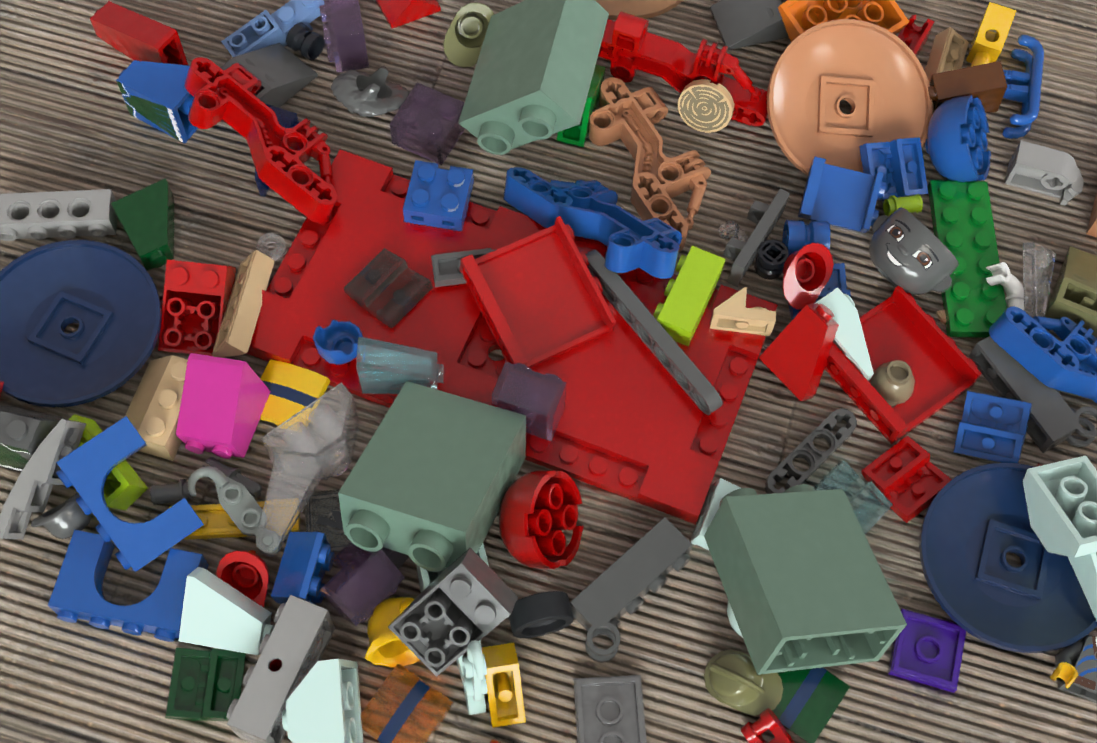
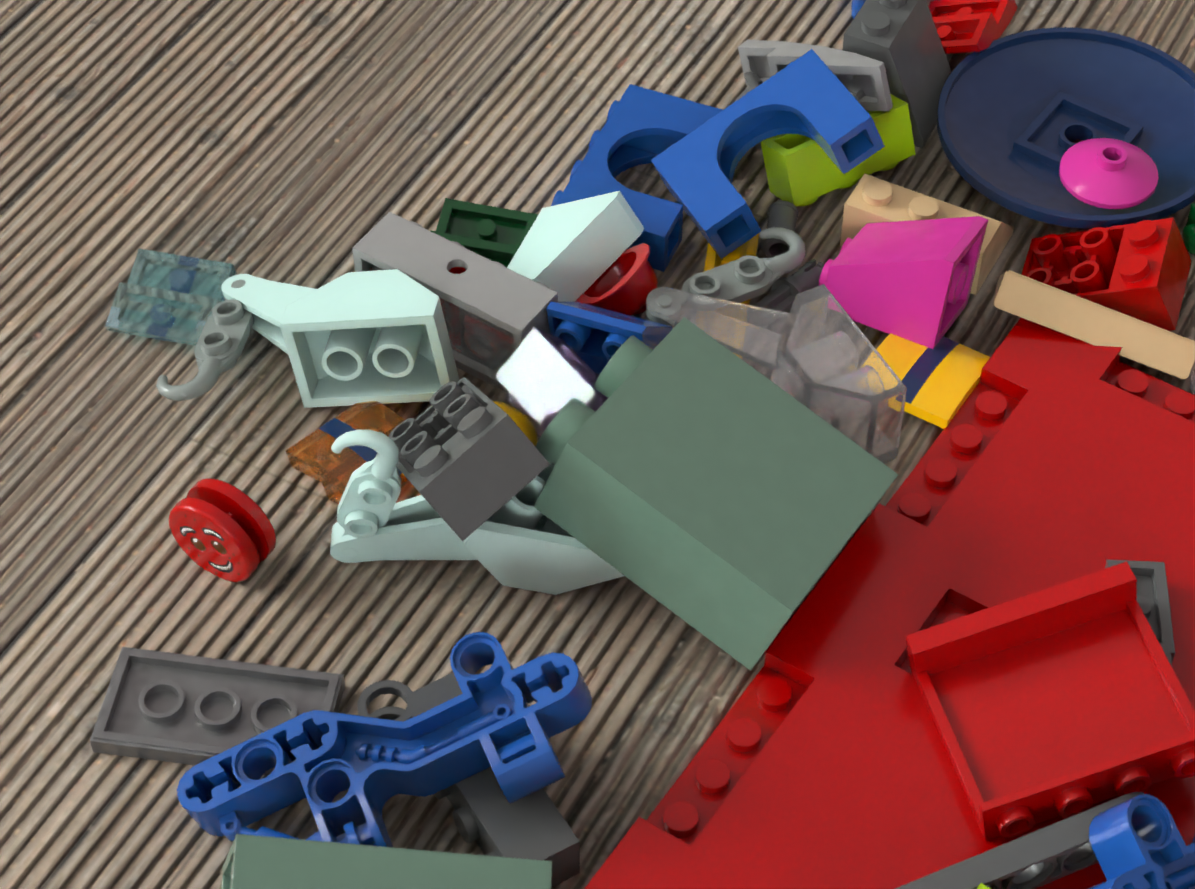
camera: 105 degrees right, 15 degrees down
(124, 309) = (1108, 173): none -> dark pink dish
(337, 342) = (996, 411): blue hair -> none
(387, 366) = (930, 471): clear light blue slope -> none
(388, 288) = (1106, 504): clear smoke slope -> none
(504, 685) = (365, 572): yellow slope -> none
(531, 394) = (832, 642): clear purple brick -> none
(534, 515) = (598, 629): red cylinder -> none
(541, 614) = (450, 616): black tyre -> none
(645, 622) = (390, 757): none -> blue beam

